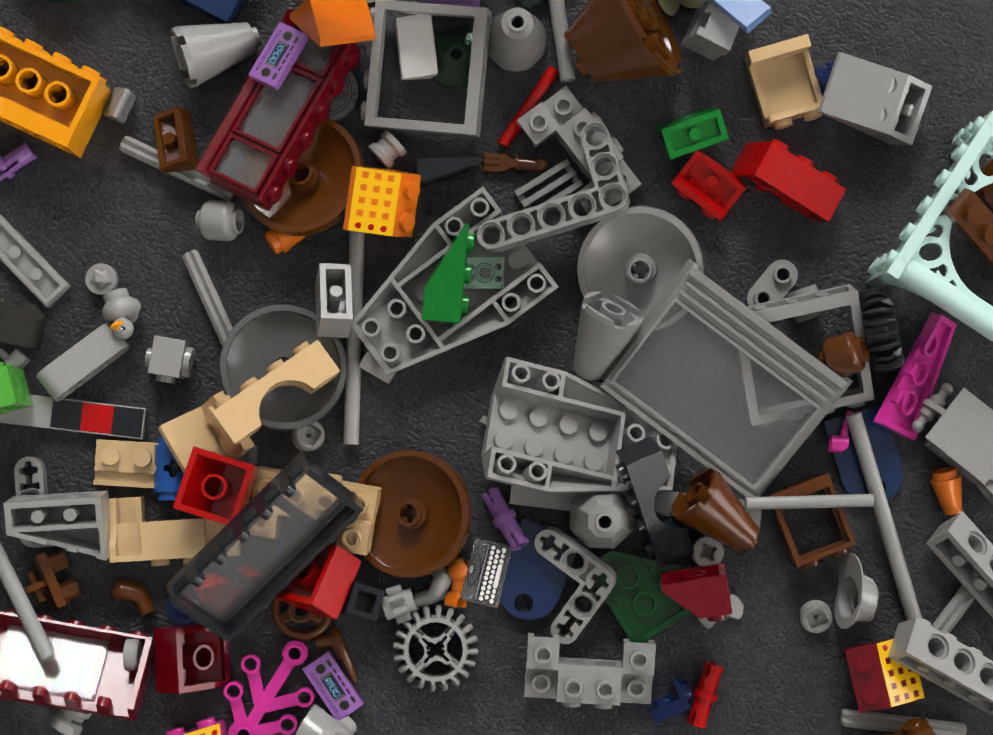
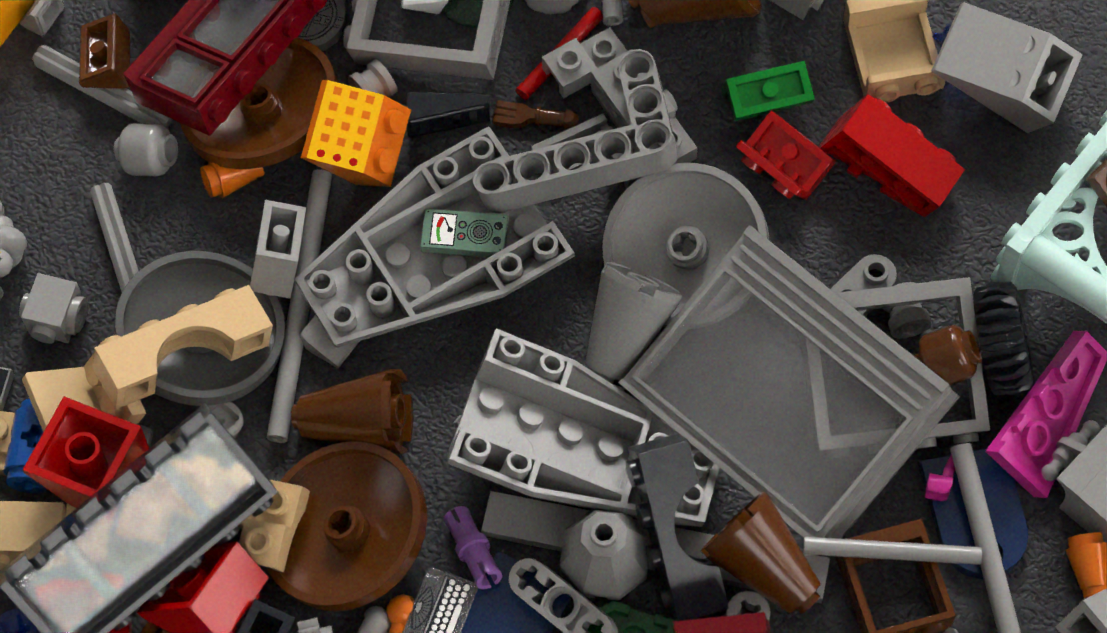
camera: 15 degrees right, 20 degrees down
(410, 425) = (358, 410): none -> reddish brown cone
(444, 290) = (426, 236): green slope -> none

